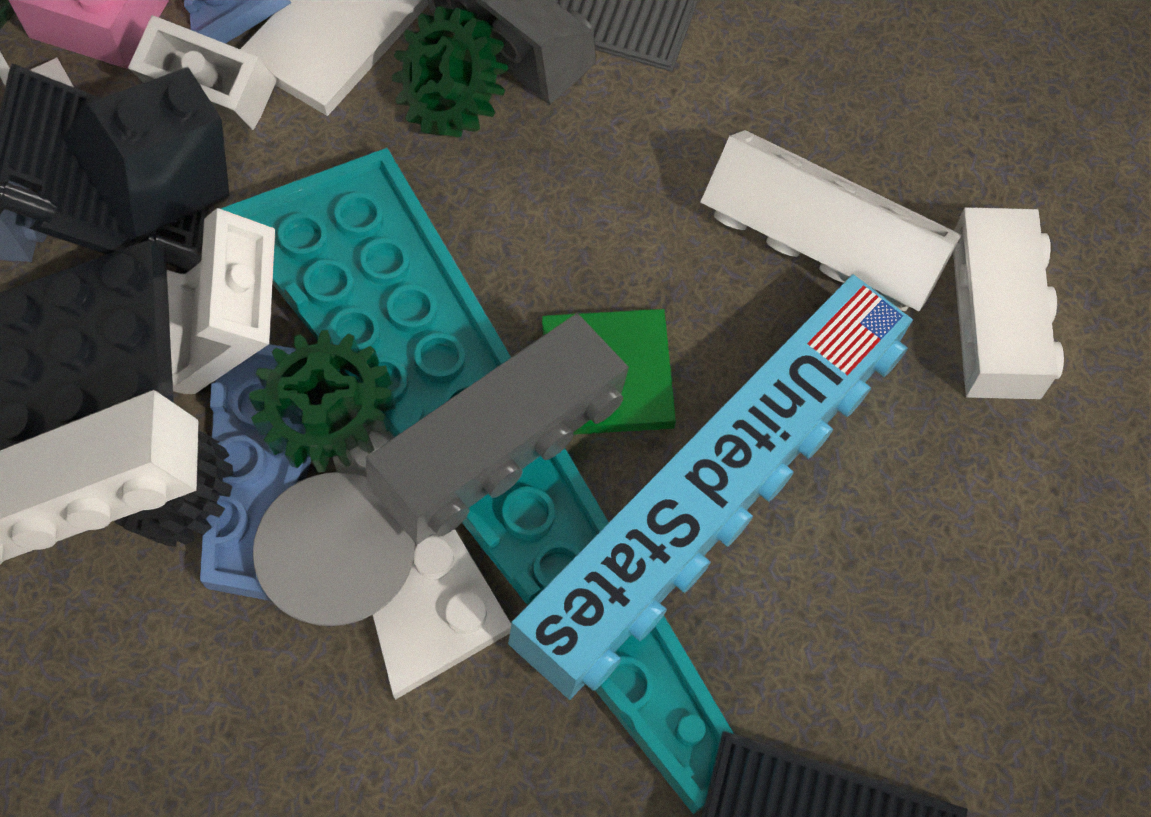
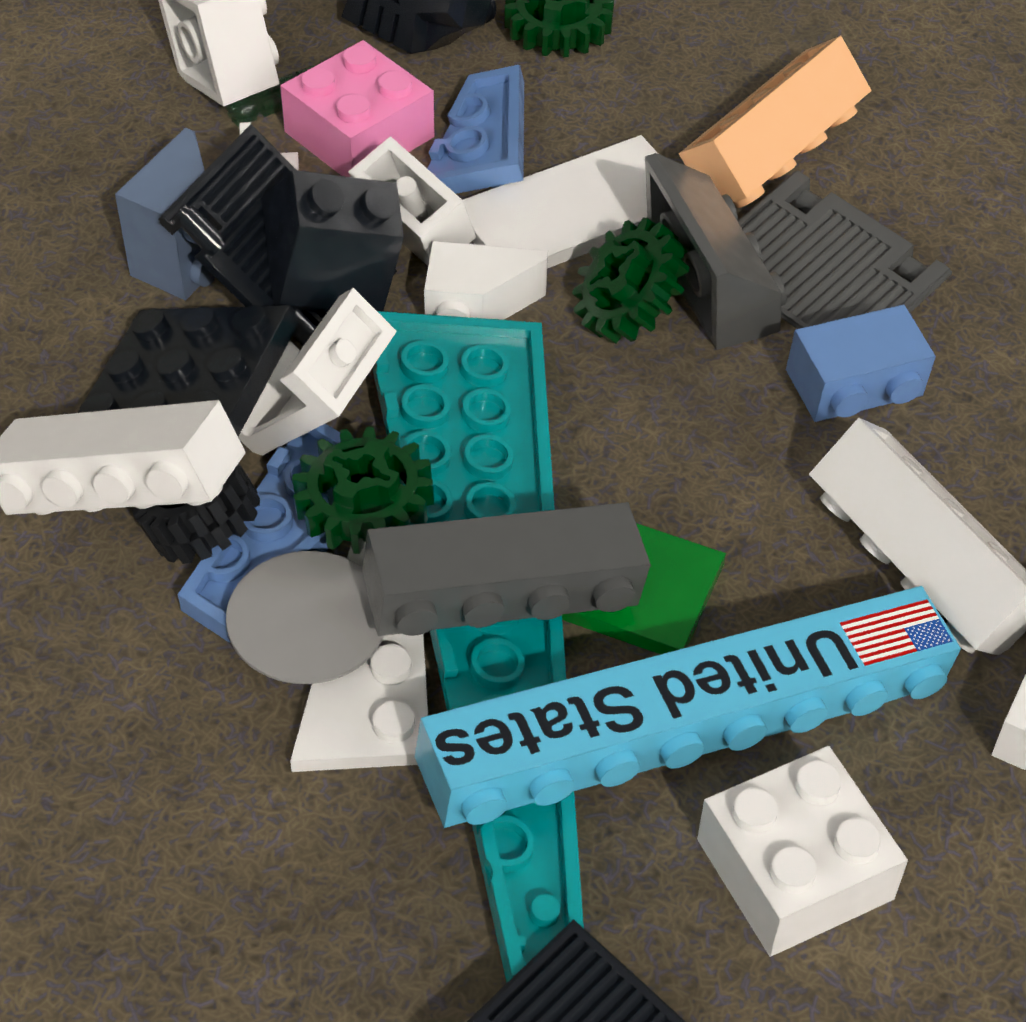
camera: 25 degrees right, 15 degrees down
(309, 128) = (483, 280): none -> white slope
(689, 71) = (859, 363): none -> medium blue brick
(871, 568) = (800, 850): none -> white brick

